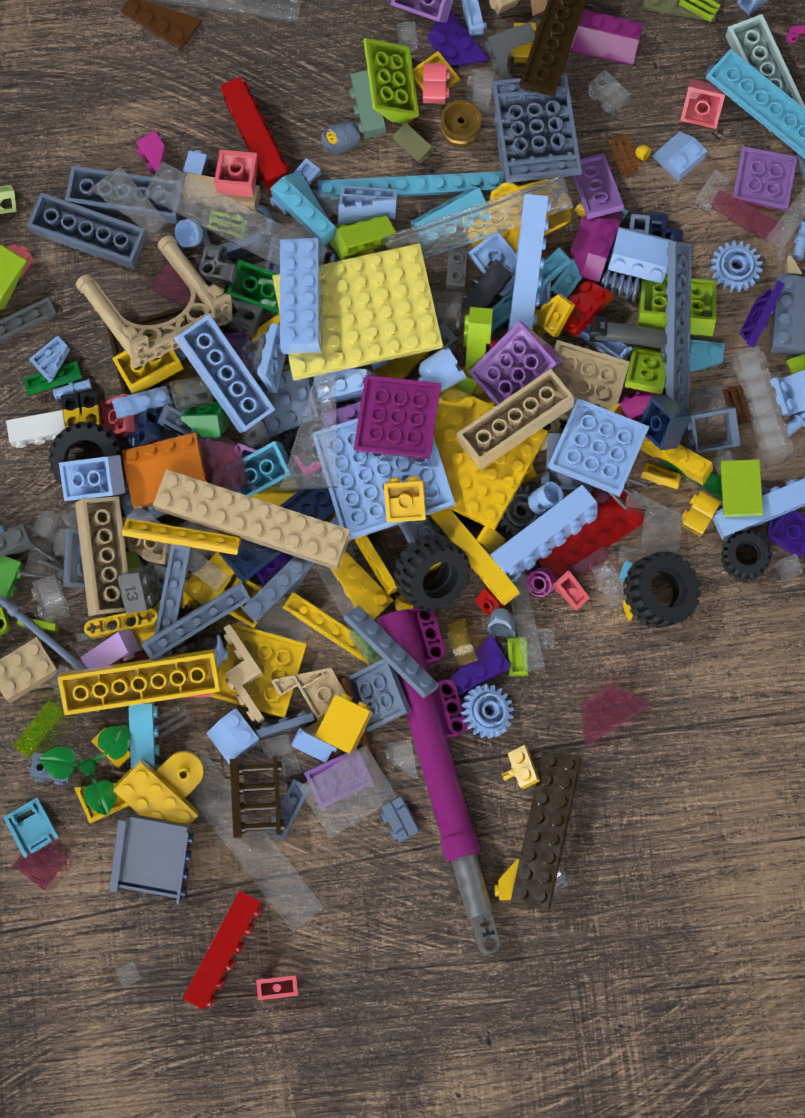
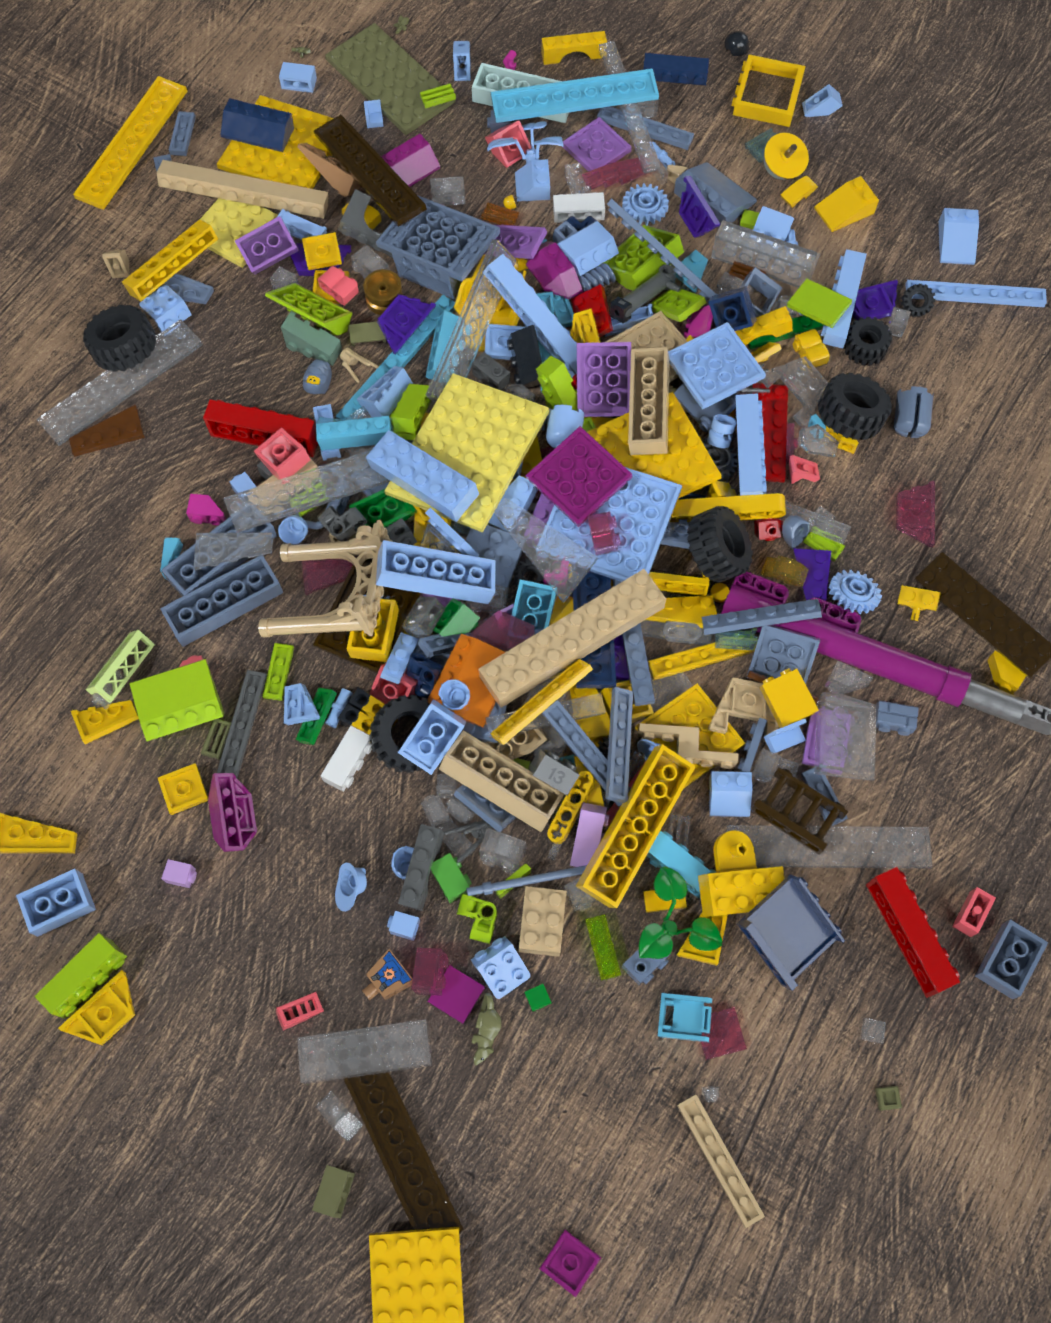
camera: 55 degrees left, 10 degrees down
(67, 320) = (278, 671): none -> lime tile
(86, 1019) = (888, 1098): none -> olive tile
(96, 158) = (171, 550): none -> medium azure slope
(136, 467) = (454, 694): none -> light blue hair
(260, 1040) = (1011, 959): none -> sand blue brick
(338, 600) = (681, 632): none -> clear plate
(362, 474) = (603, 533): none -> clear pink brick
(379, 148) = (351, 358): none -> tan plant
(405, 499) = (651, 514): yellow plate -> none
(445, 161) = (402, 320): none -> dark purple wing
(457, 42) = (321, 251): none -> yellow plate
(535, 587) = (774, 478): magenta wheel -> none
(685, 213) = (578, 206): none -> white brick
(706, 651) = (913, 412): none -> sand blue cylinder
(717, 139) = (531, 154): none -> light blue plant

